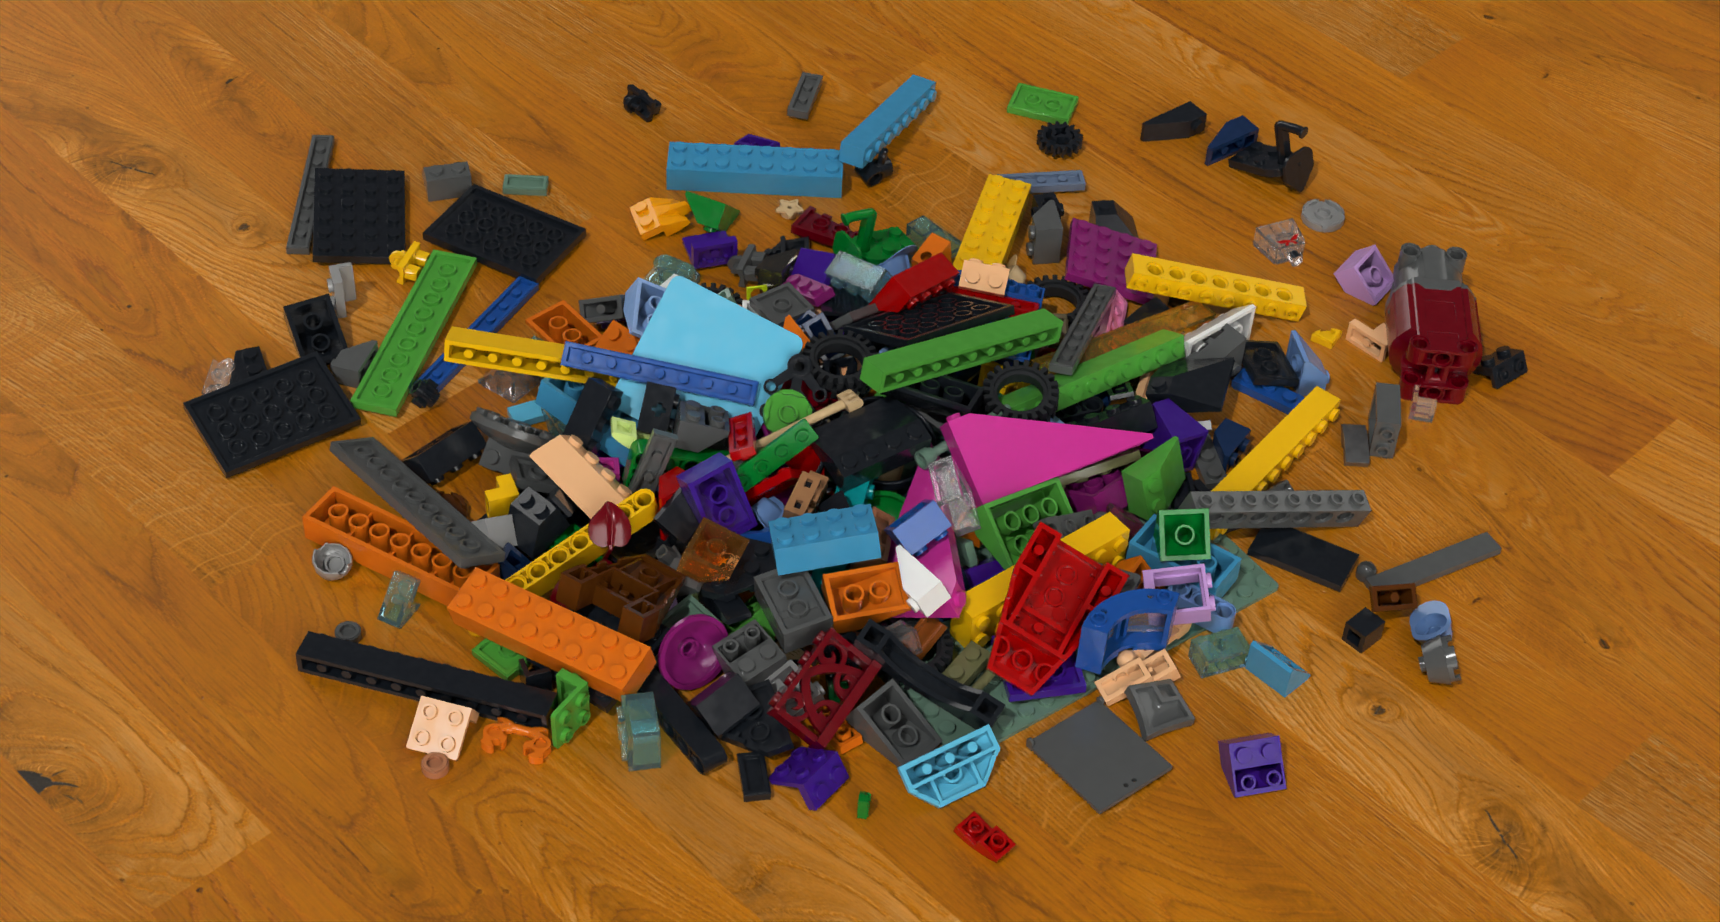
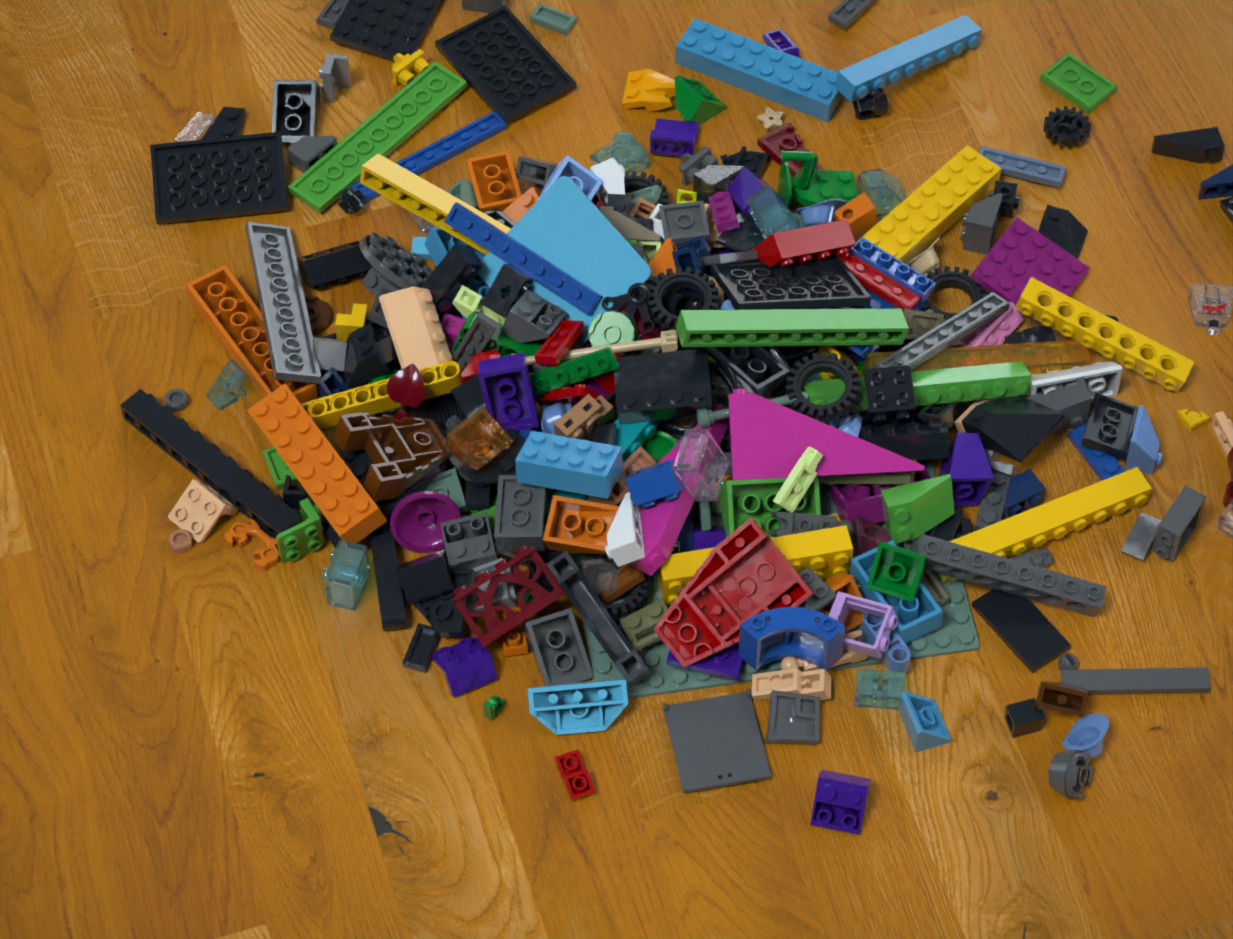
camera: 30 degrees right, 10 degrees up
(332, 561) = (194, 331): light grey hair -> none
(984, 277) = (878, 256): light nougat bracket -> none
(1048, 482) = (798, 480): none -> yellowish green hinge
(1079, 386) = (889, 394): none -> black bracket

